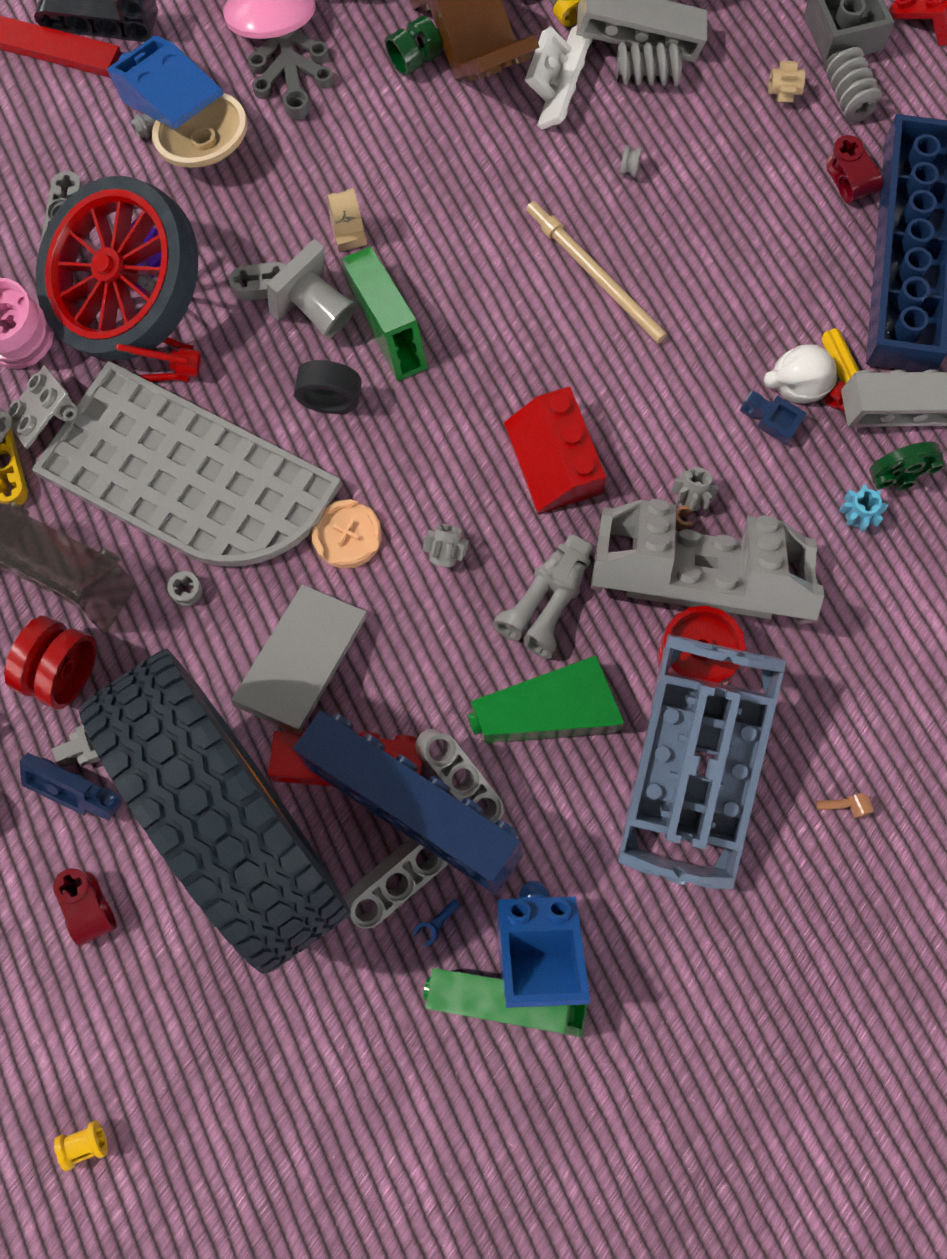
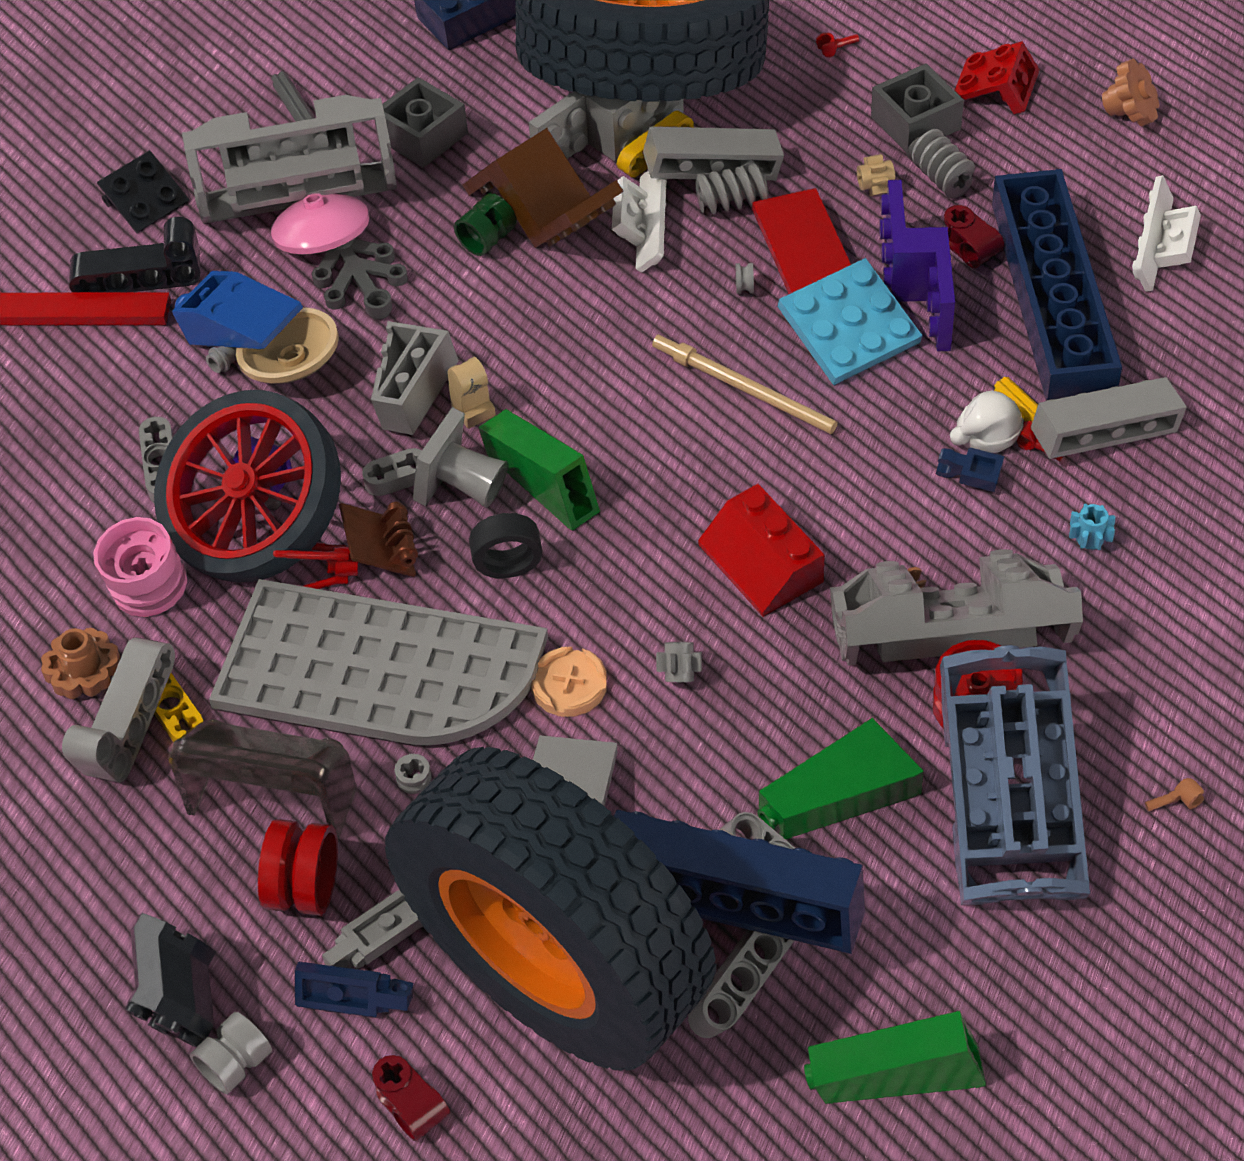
camera: 15 degrees left, 20 degrees down
(38, 404) = (199, 634): light grey hinge -> none
(221, 348) = (380, 538): none -> copper hinge
(298, 188) = (411, 374): none -> light grey wedge
(437, 922) = (794, 1017): blue hand -> none
(541, 949) = (912, 986): blue slope -> none
(559, 576) = (806, 663): light grey piece -> none
(695, 488) = (917, 548): light grey gear -> none
(697, 139) = (800, 237): none -> red tile
(711, 231) = (849, 321): none -> medium azure plate
(792, 190) = (918, 265): none -> dark purple bracket
(906, 464) = (1120, 475): dark green tile -> none

